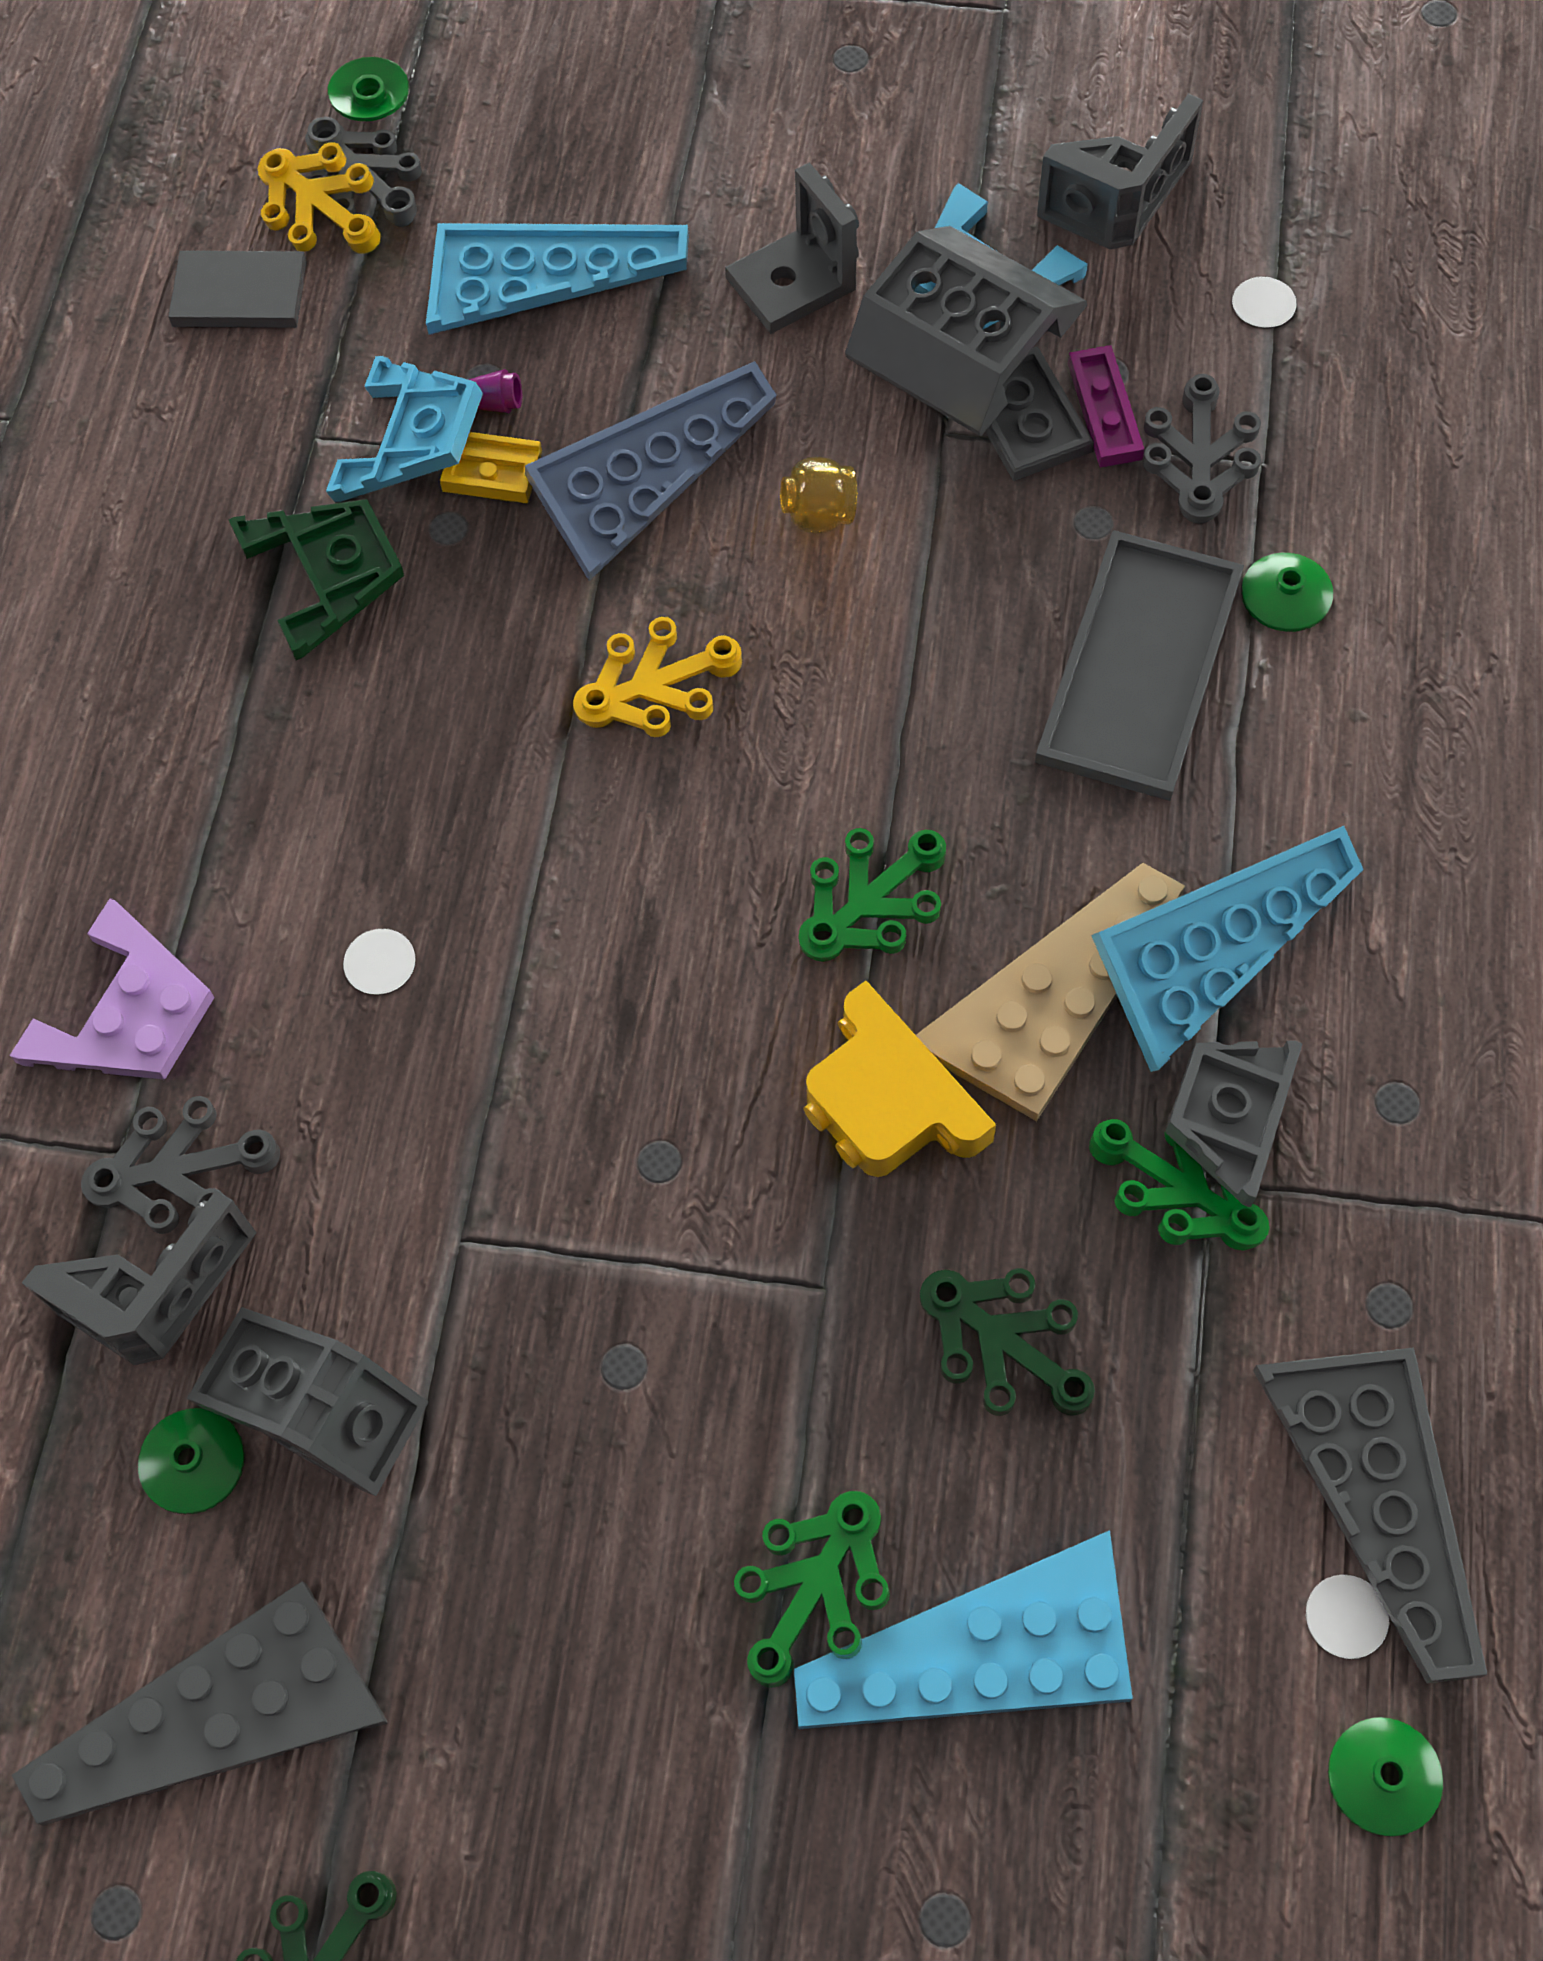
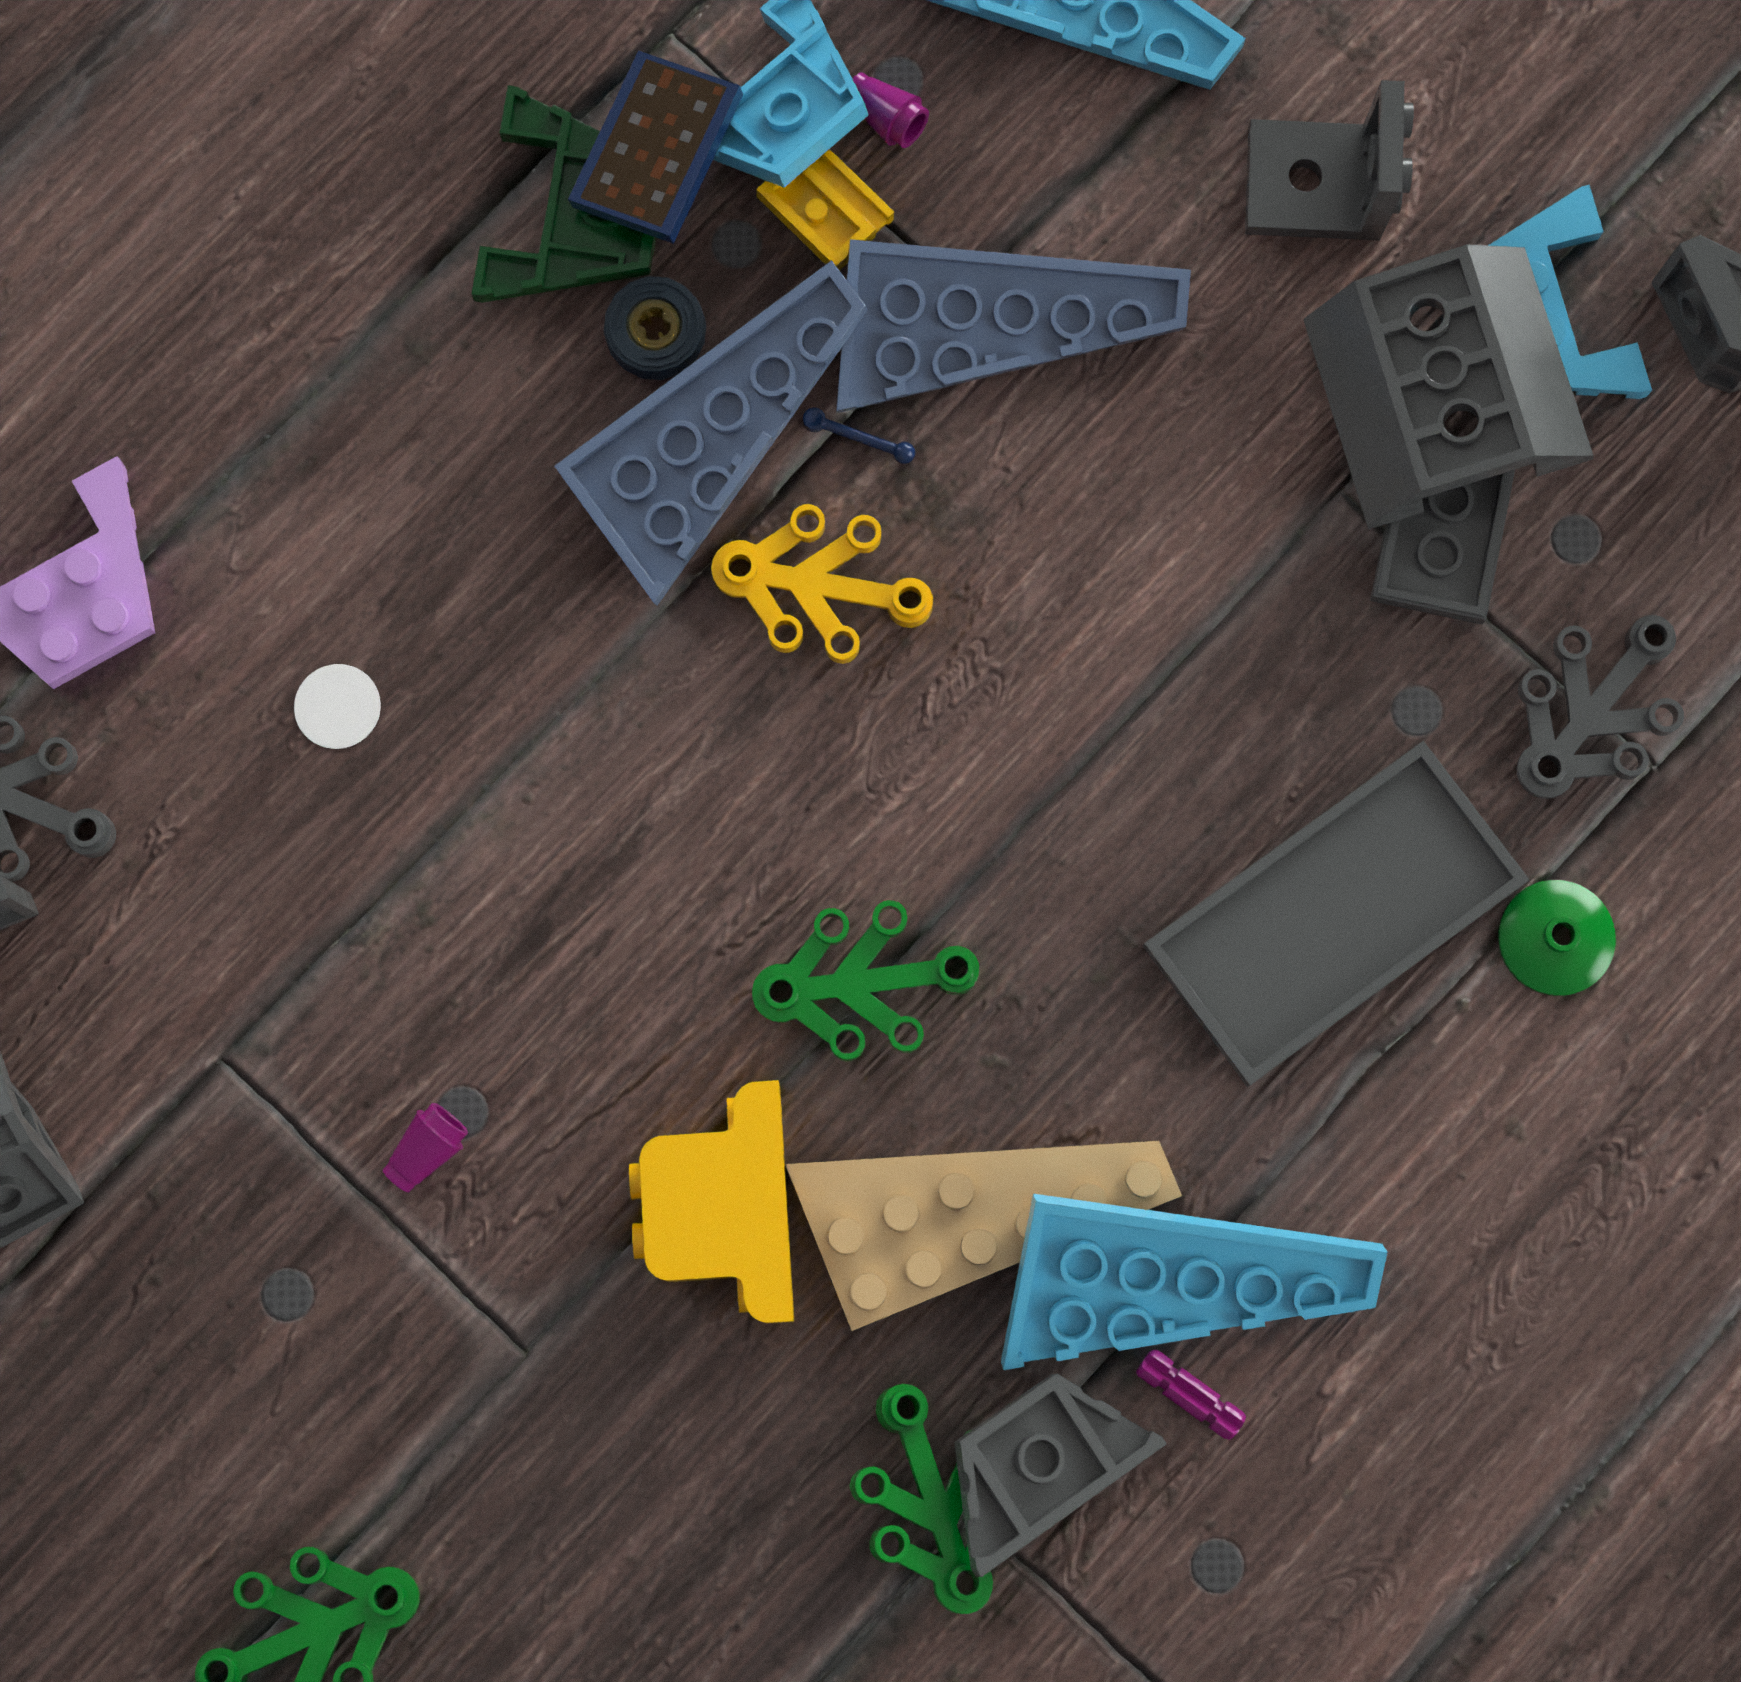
camera: 30 degrees right, 15 degrees up
(355, 490) = (655, 146): none -> tile
(428, 622) = (629, 341): none -> black bush
(508, 651) = (690, 446): none -> sand blue wing
(579, 593) = (815, 421): none -> dark blue hinge
(651, 1194) = (425, 1146): none -> magenta cone
(819, 494) = (1137, 488): clear yellow piece -> none
(1000, 1335) = (649, 1522): dark green plant -> none
(1105, 406) = (1532, 584): magenta plate -> none
(1291, 1003) = (1191, 1394): none -> magenta axle

